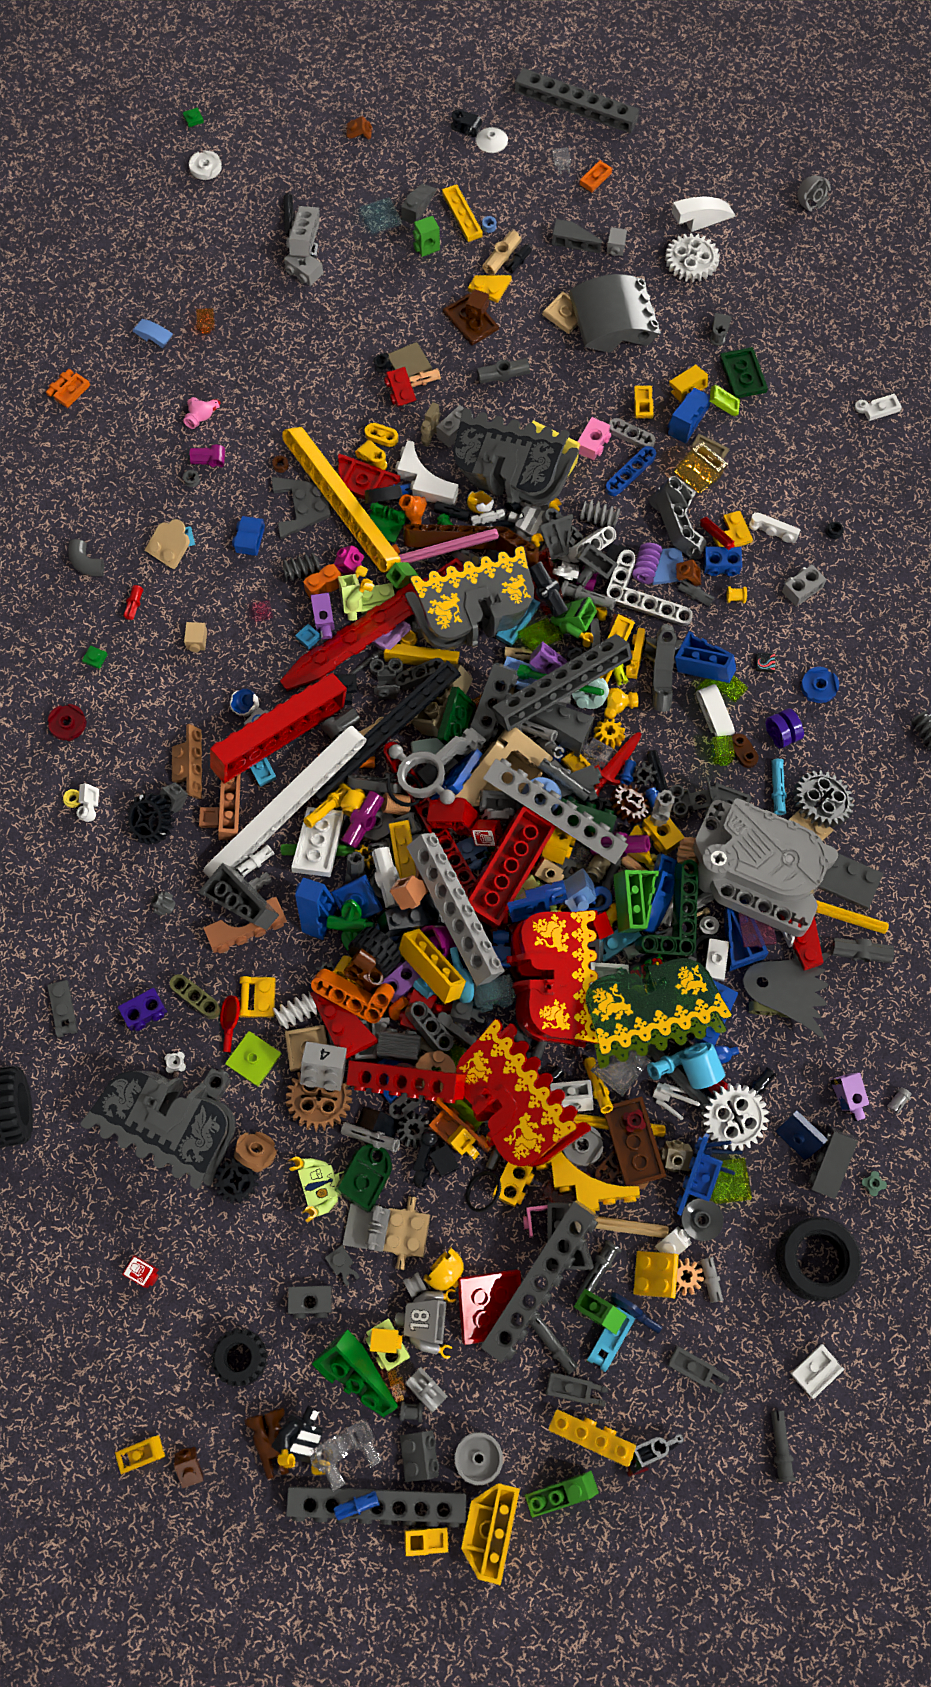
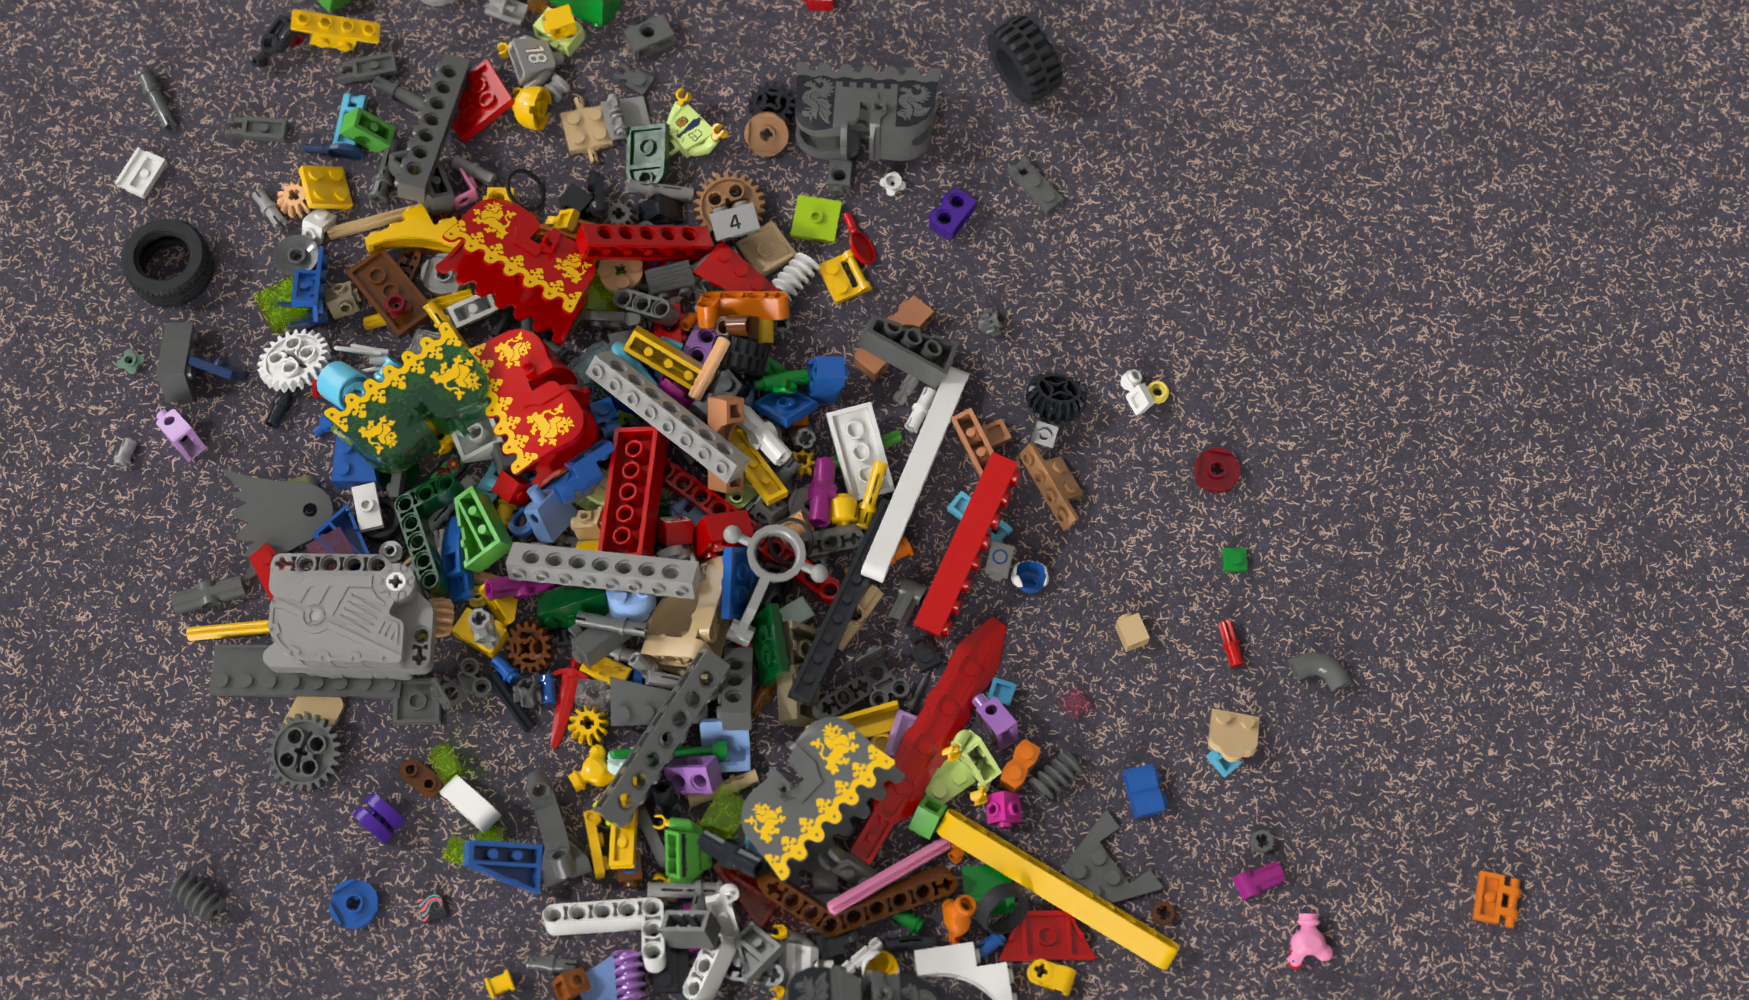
camera: 155 degrees right, 0 degrees up
(188, 990) = (898, 240): olive beam -> none
(404, 937) = (709, 368): none -> light nougat axle
(520, 1236) = (473, 170): none -> light grey pin
(779, 794) = (360, 739): medium azure pin -> none

